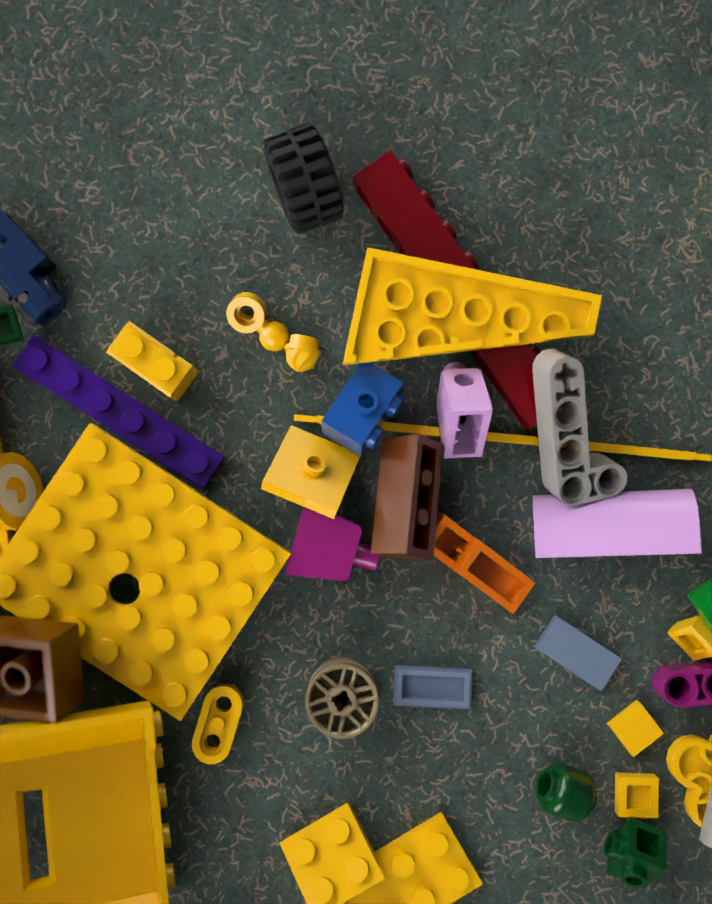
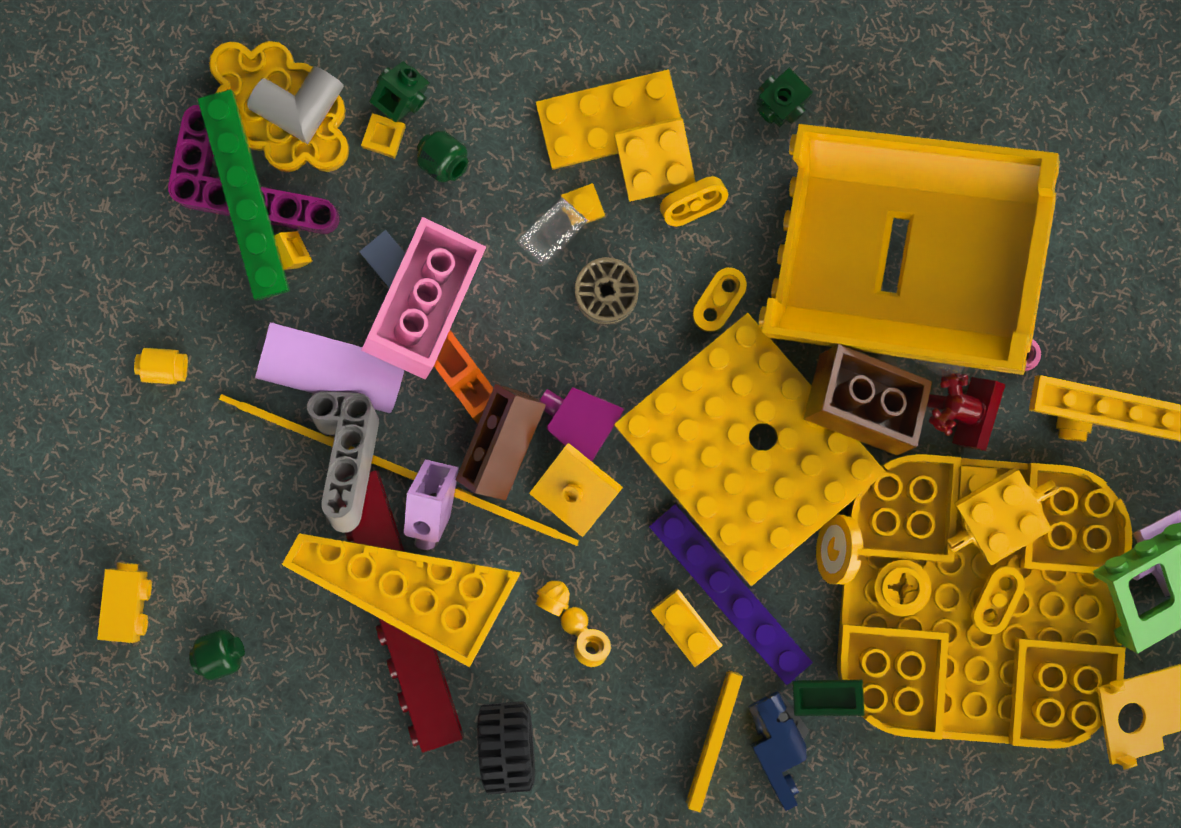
camera: 160 degrees left, 0 degrees up
(91, 255) = (713, 741): none -> yellow tile
(276, 825) = (693, 201): none -> yellow plate
(362, 408) = (515, 531): blue brick -> none
(396, 782) = (586, 202): none -> yellow plate
(420, 745) = (552, 232): none -> clear slope
(432, 687) = (527, 275): sand blue tile -> none
(541, 630) = (423, 298): none -> bright pink brick
(633, 190) = (216, 654): none -> dark green head
(635, 728) = (366, 190): yellow tile -> none

